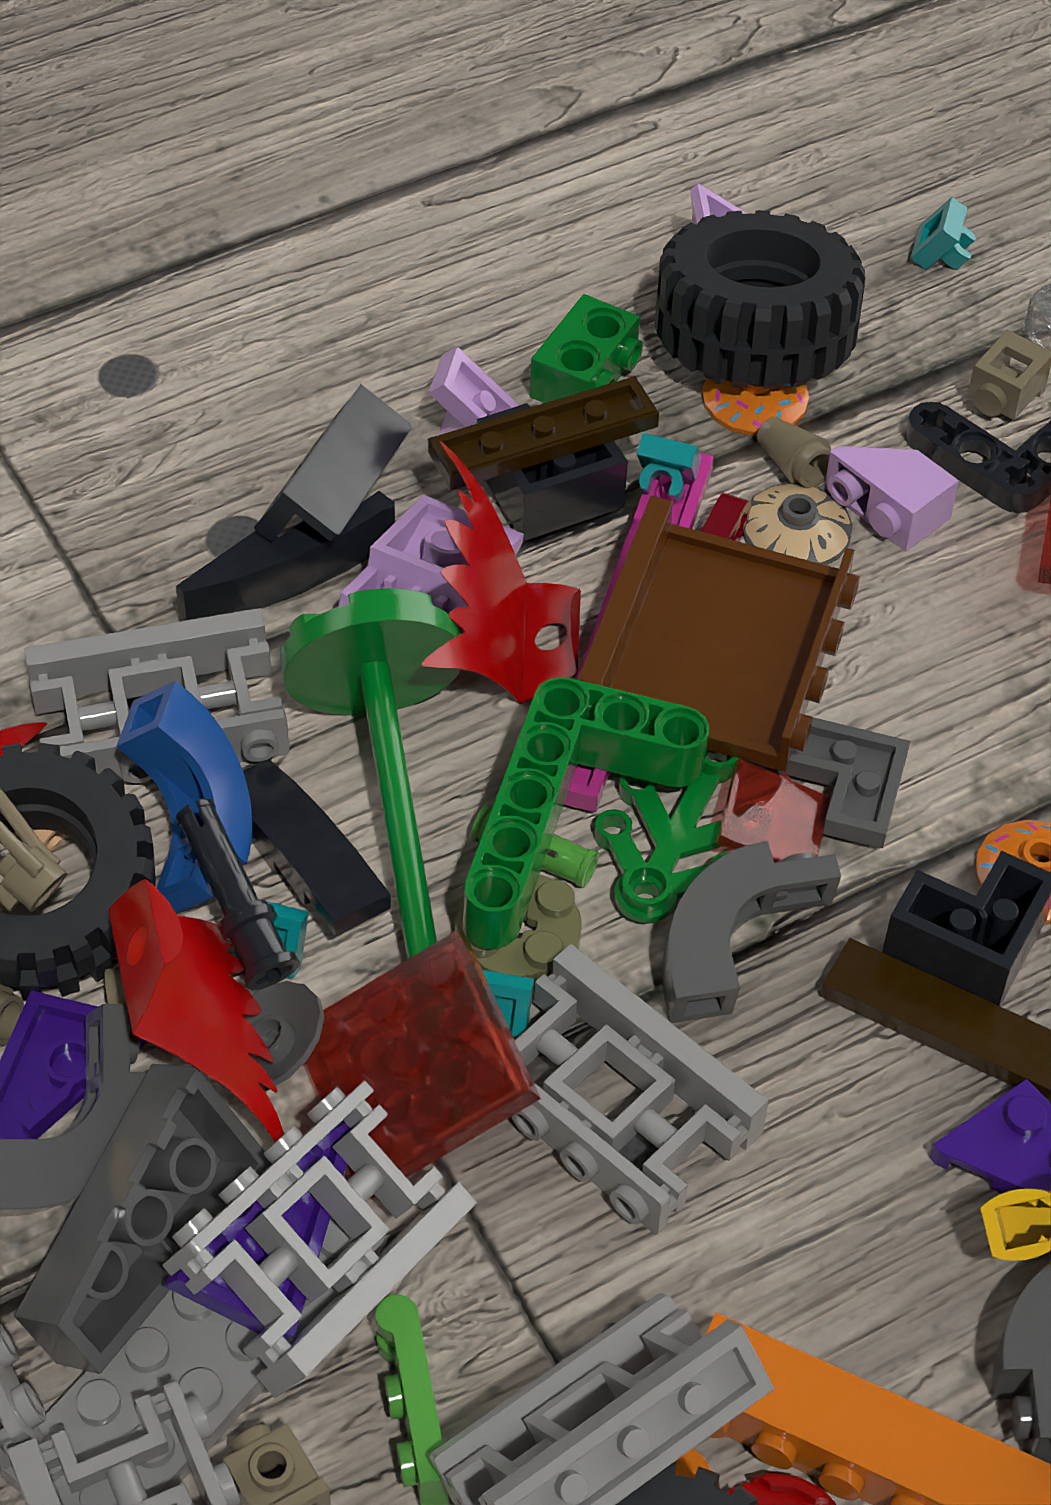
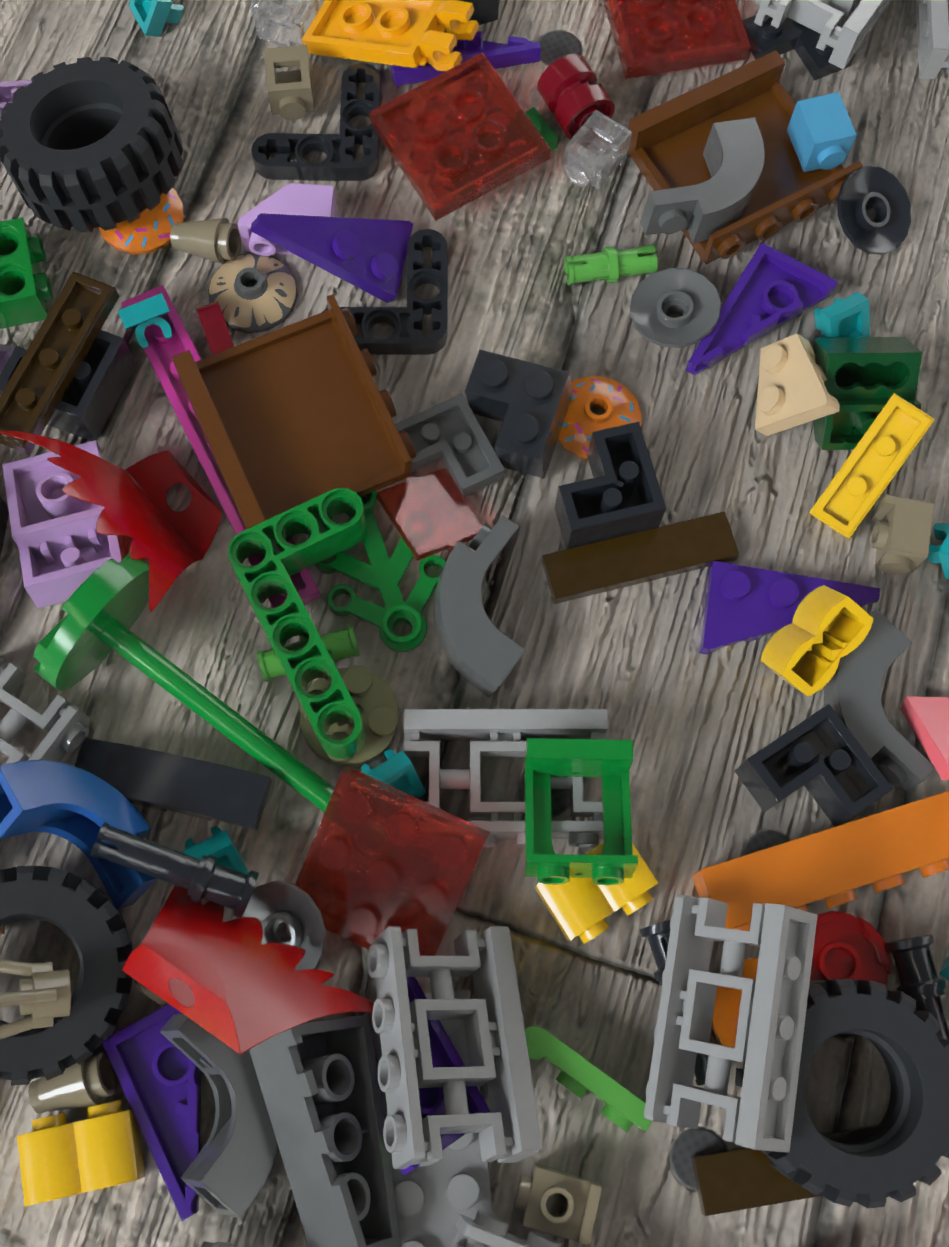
camera: 45 degrees left, 20 degrees up
(598, 1252) = (583, 906): none -> yellow brick
(683, 1103) = (579, 758): none -> green panel
(926, 549) = (354, 249): none -> dark purple wing
(926, 650) = (409, 320): none -> black beam
(940, 1317) = (821, 758): none -> black brick
(961, 798) = (528, 402): none -> black brick

